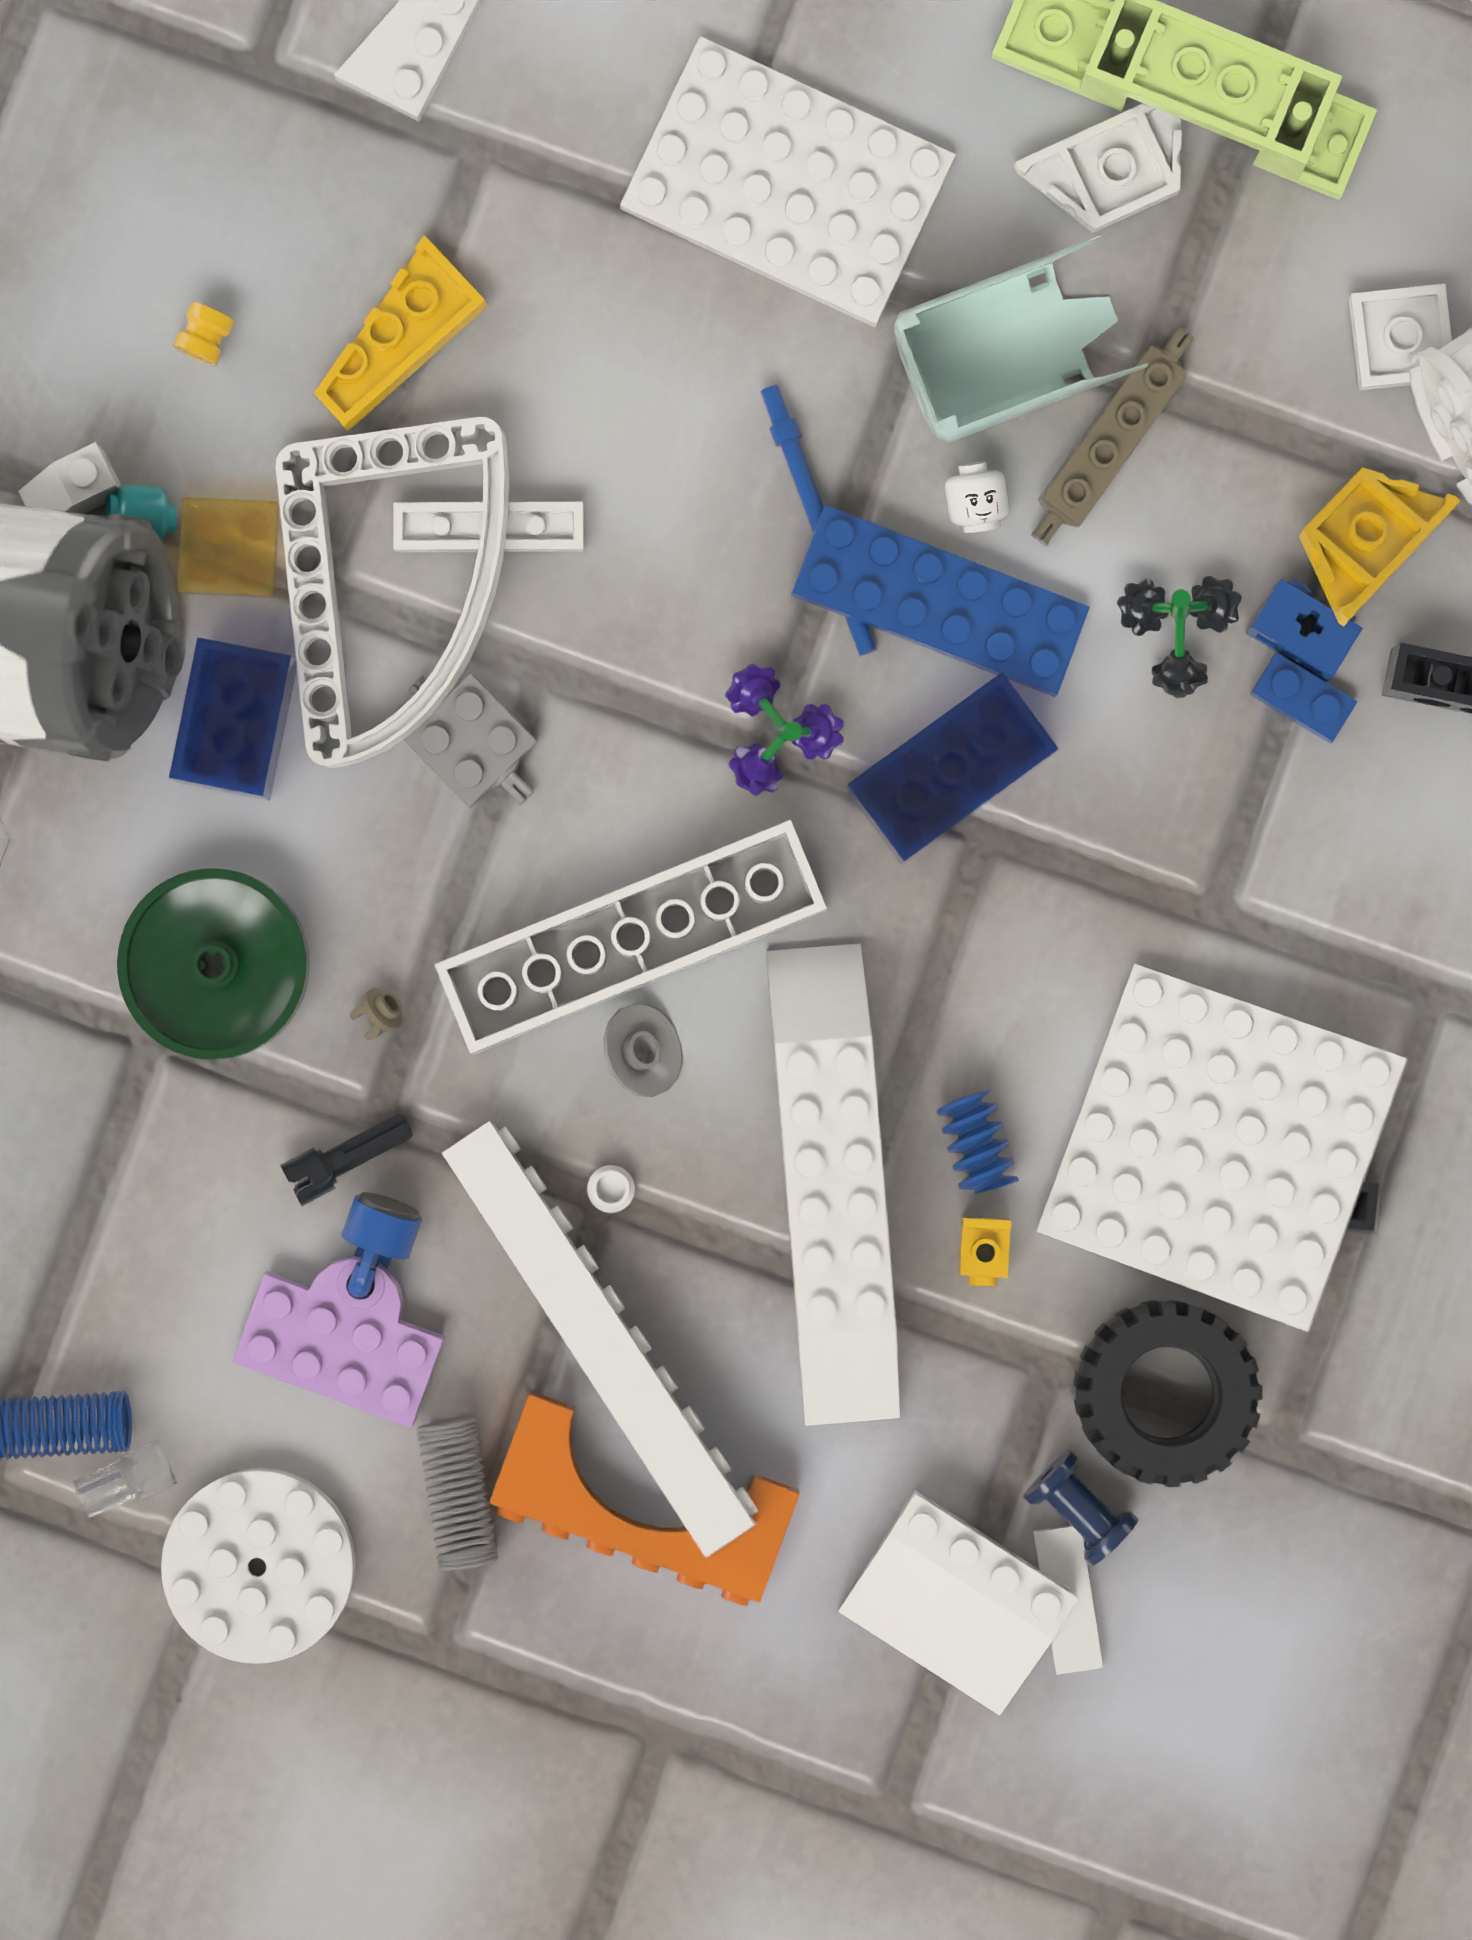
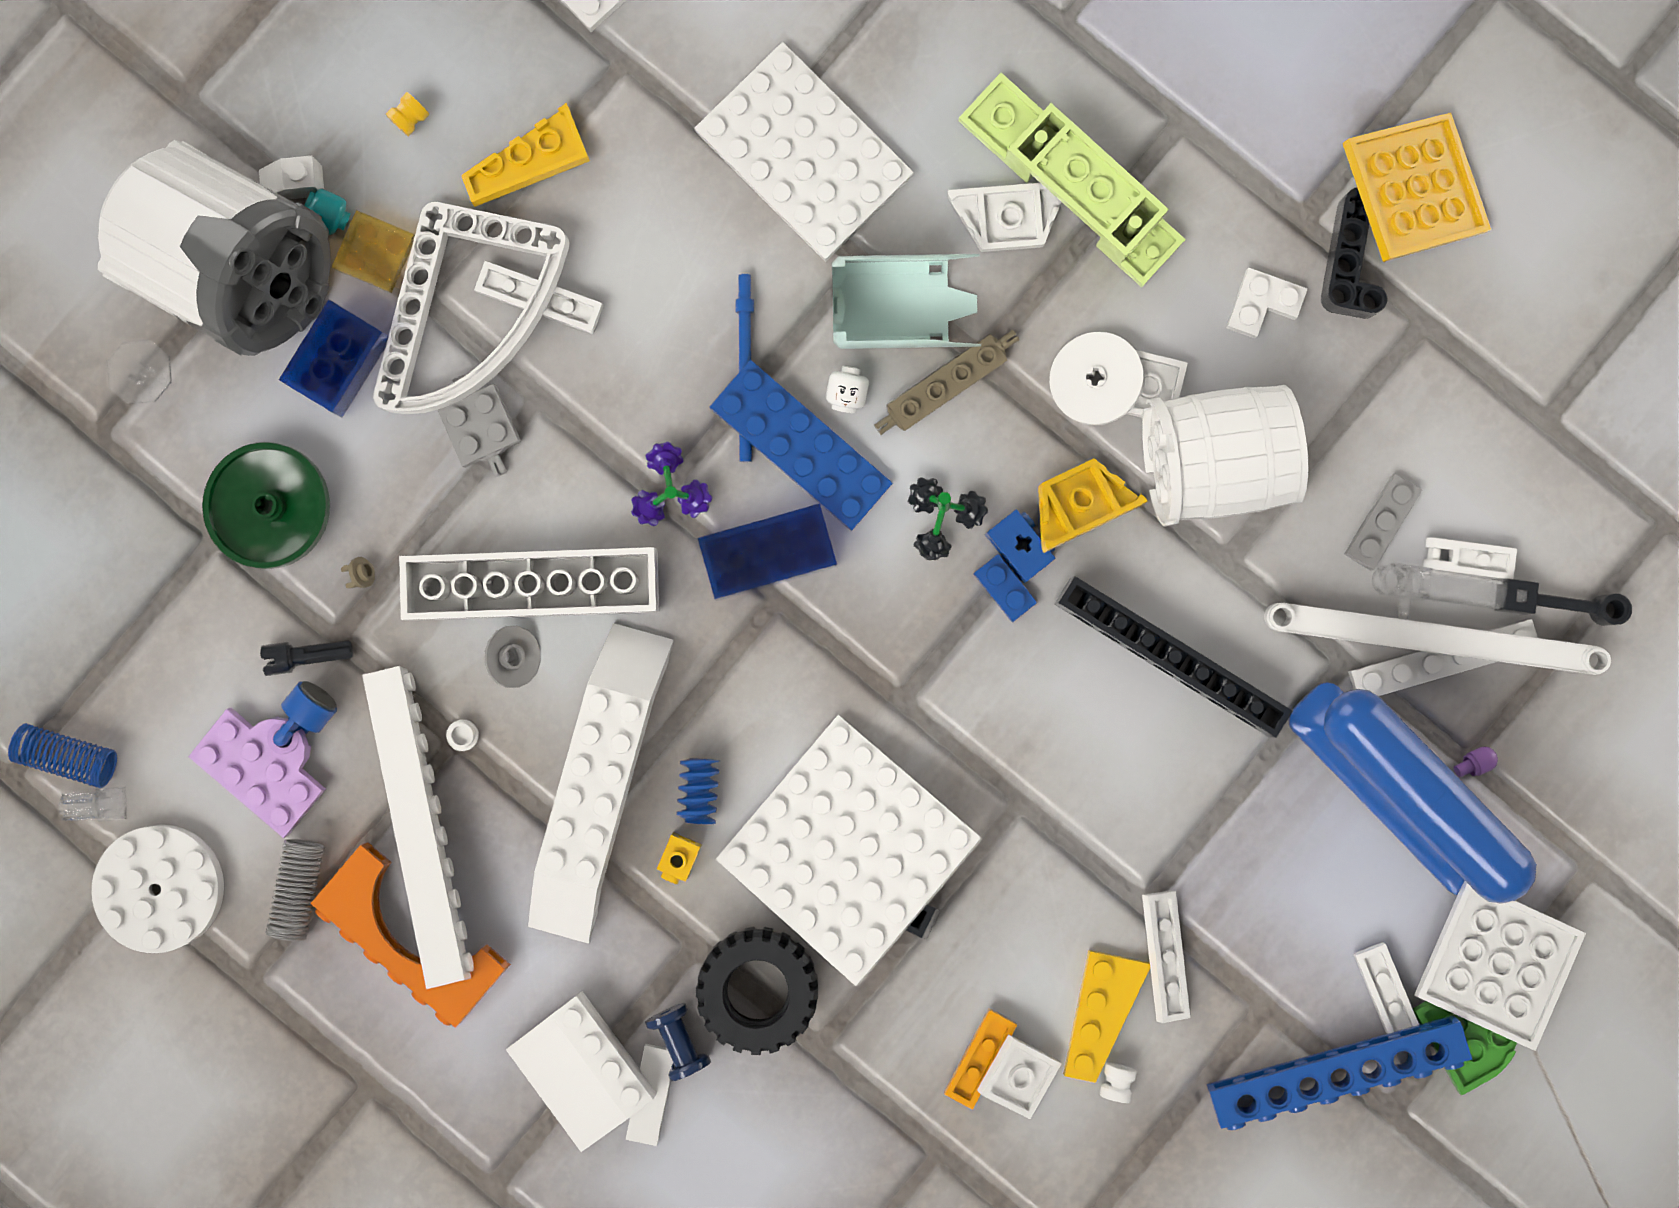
camera: 20 degrees right, 0 degrees up
(1356, 371) = (1112, 396): none -> white piece

